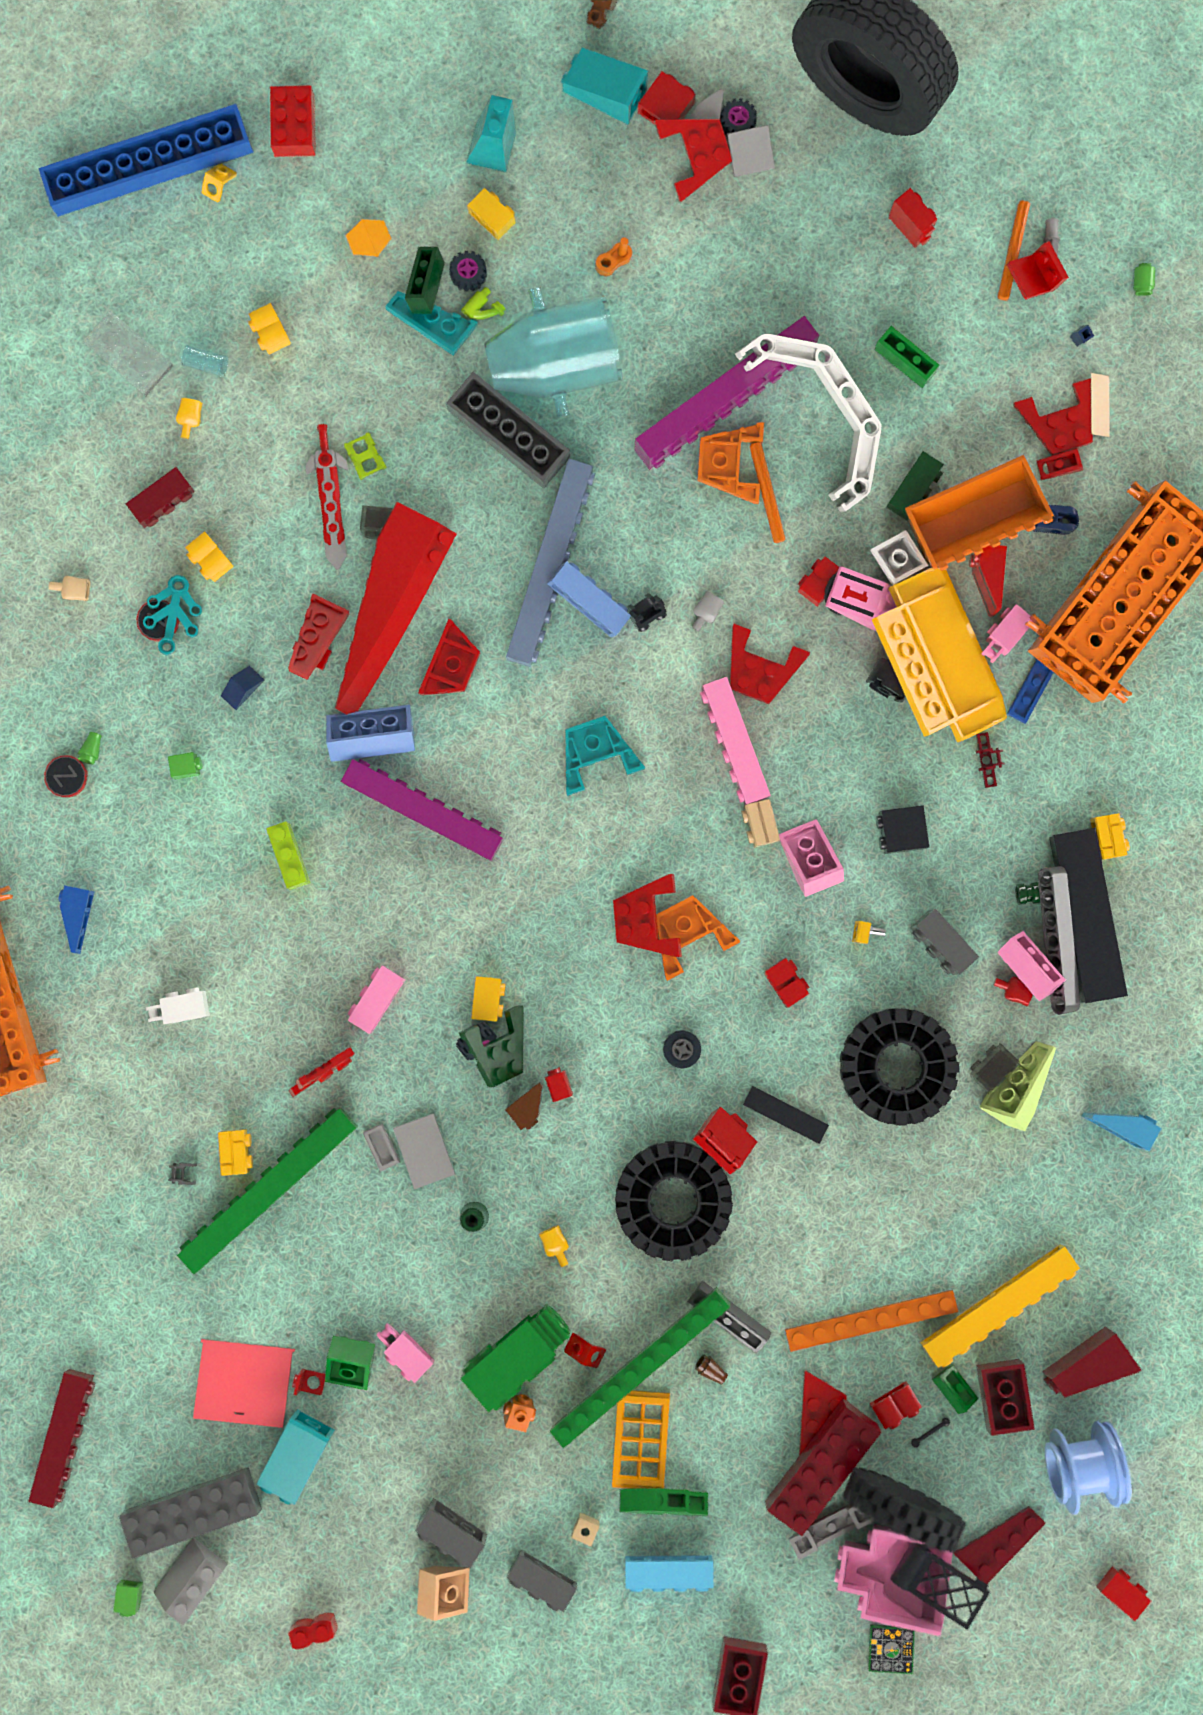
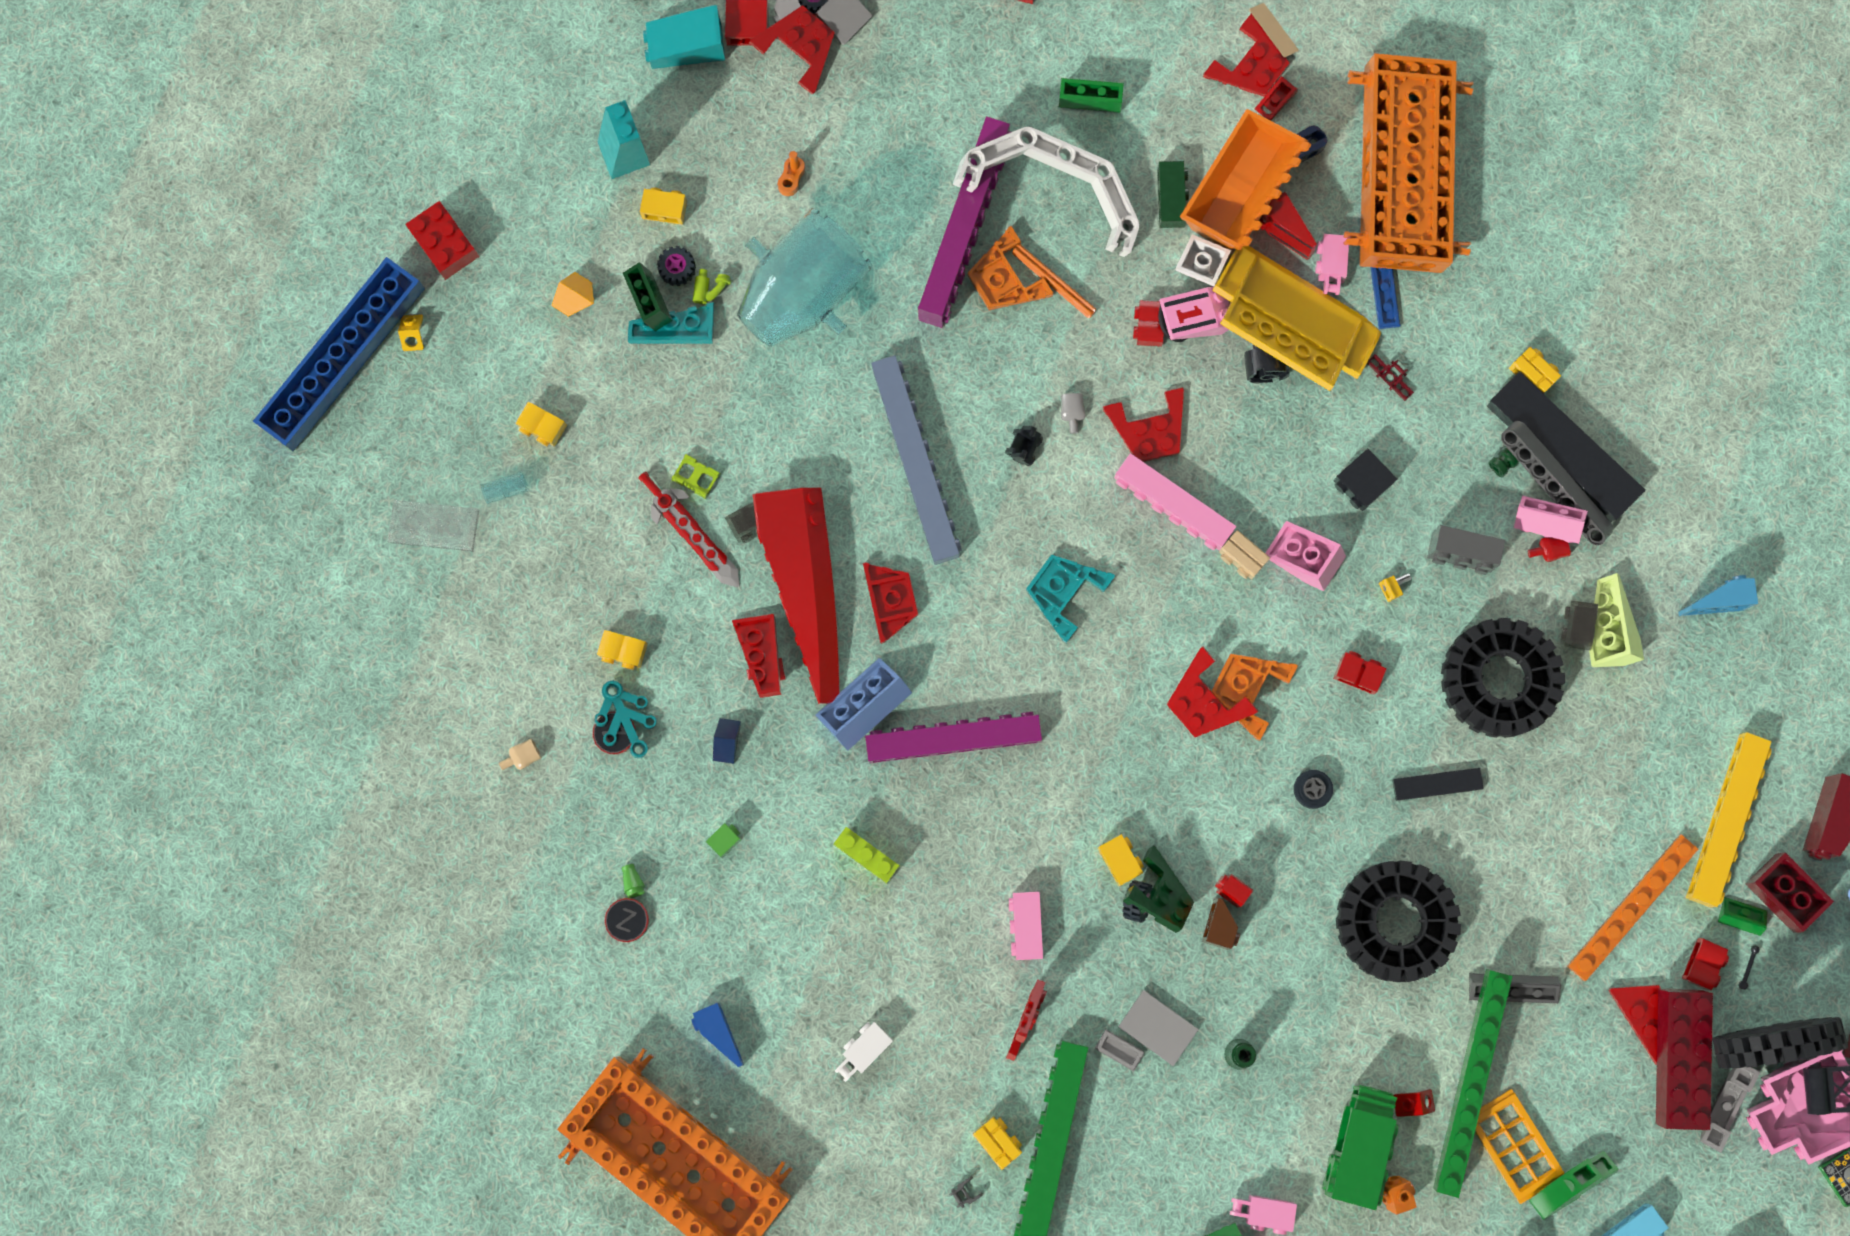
camera: 30 degrees left, 5 degrees down
(160, 498) = (546, 627): dark red brick -> none
(188, 415) = (521, 542): yellow piece -> none
(508, 430) = (803, 373): dark grey brick -> none
(555, 1244) = (1324, 1029): yellow piece -> none
(589, 599) = (970, 466): medium blue brick -> none
(710, 1369) = (1529, 1043): reddish brown cone -> none
(725, 1139) = (1405, 838): red piece -> none

